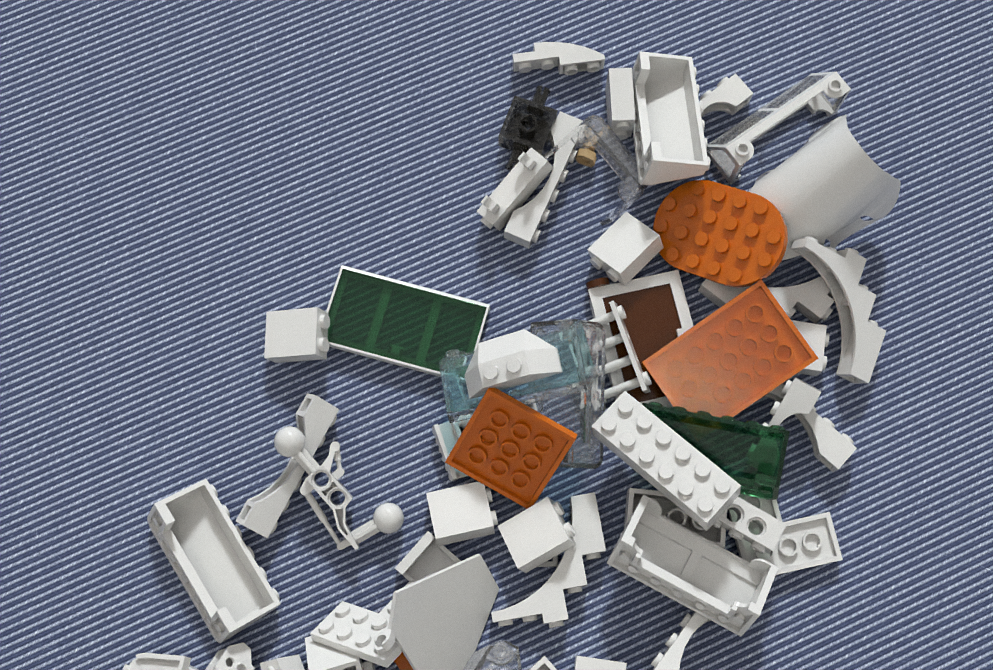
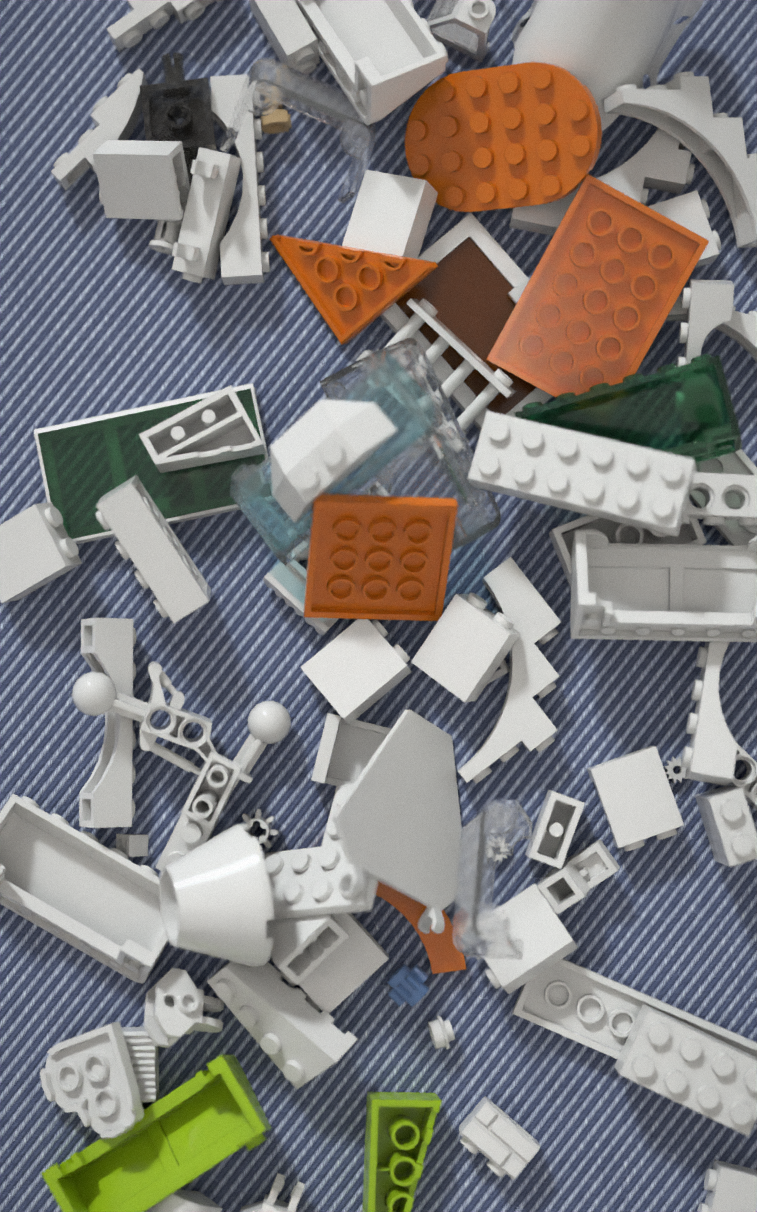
camera: 25 degrees left, 10 degrees up
(262, 551) = (132, 844): none -> white piece
(295, 611) = (219, 899): none -> white cone
(312, 554) = (202, 808): none -> white slope
(337, 585) = (264, 823): none -> white gear
(374, 372) = (154, 549): none -> white brick
(442, 318) = (204, 434): none -> white wedge
(486, 187) = (165, 235): none -> white bush
(487, 149) = (142, 179): none -> white brick
(488, 110) = (114, 120): none -> white slope
(581, 274) = (349, 283): none -> orange tile

